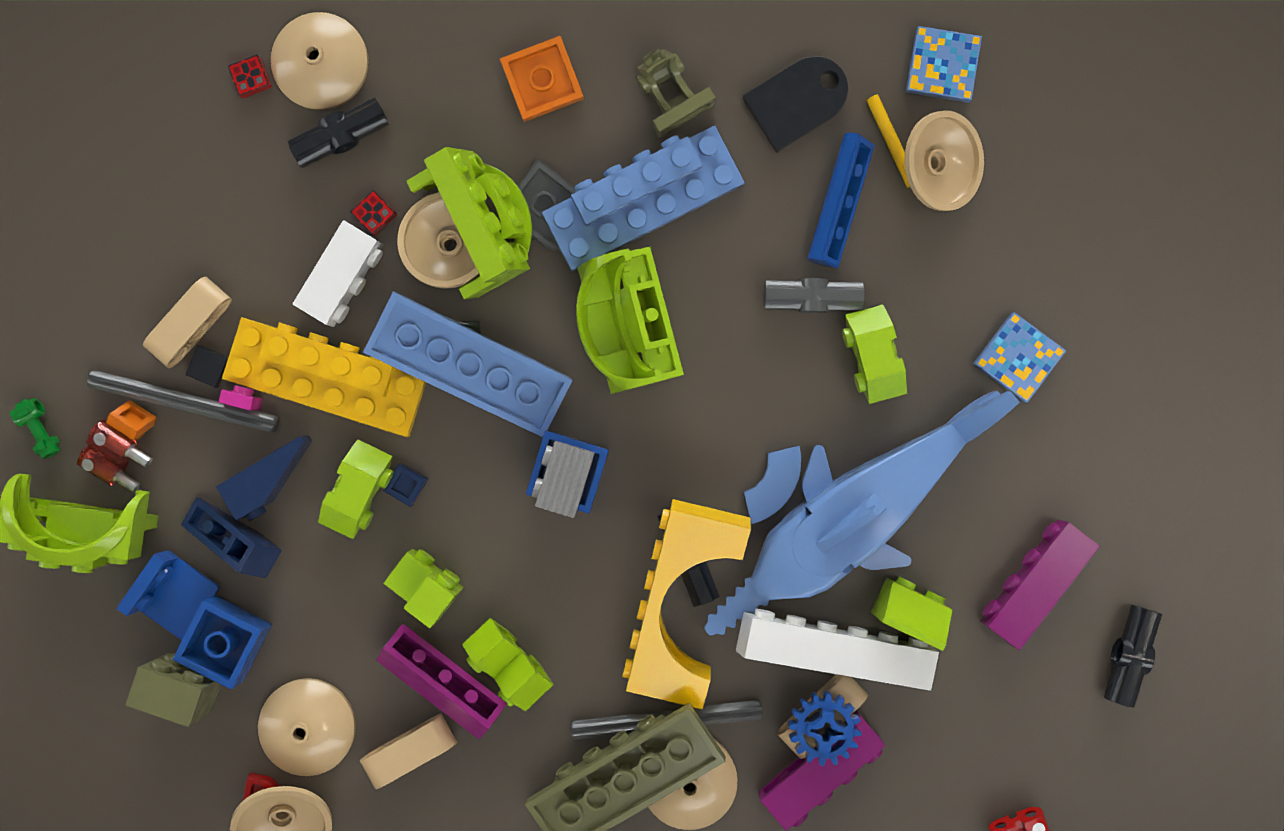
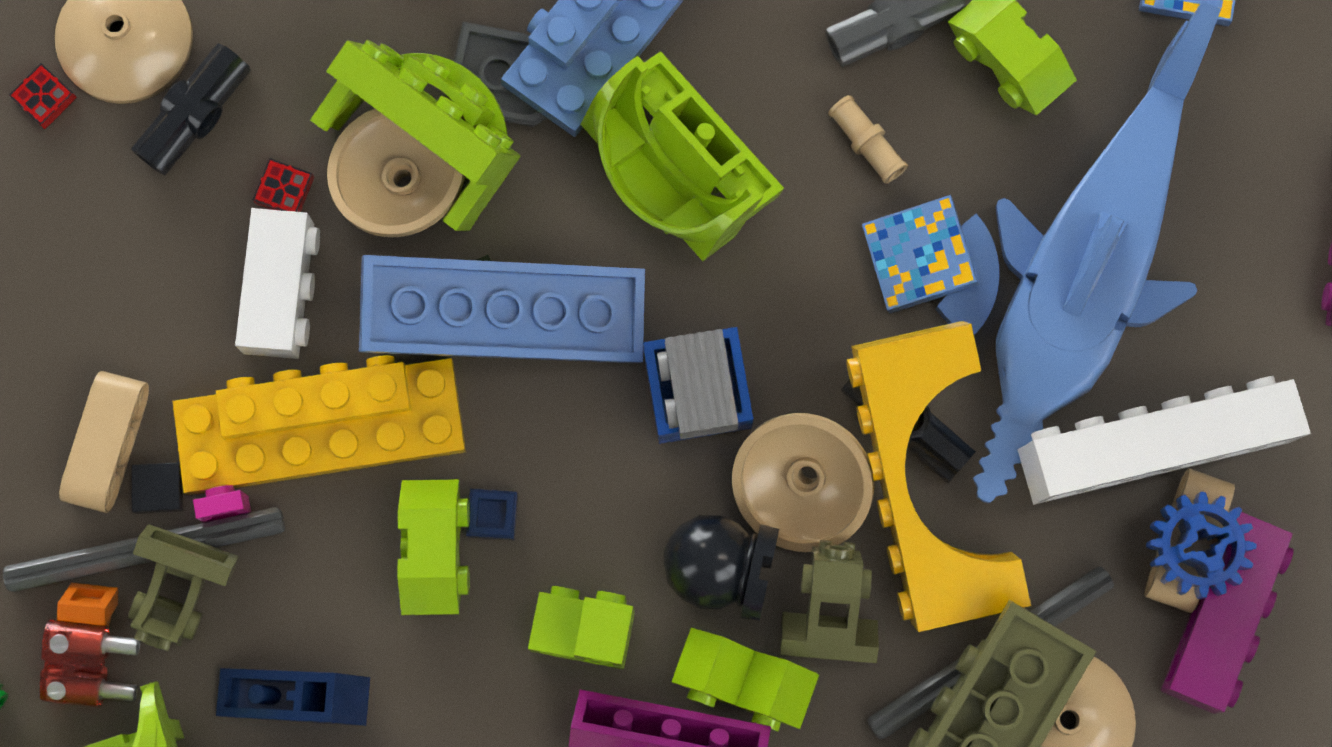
camera: 25 degrees left, 10 degrees down
(175, 453) = (160, 619): none -> olive tile
(260, 483) = (299, 602): dark blue slope -> none
(525, 589) = (718, 563): none -> black tile
(577, 657) = (832, 578): none -> olive tile
(590, 570) = (777, 494): none -> tan dish
(750, 455) = (920, 254): none -> tile
(756, 364) = (867, 139): none -> tan pin
(912, 612) = (1233, 347): lime slope -> none

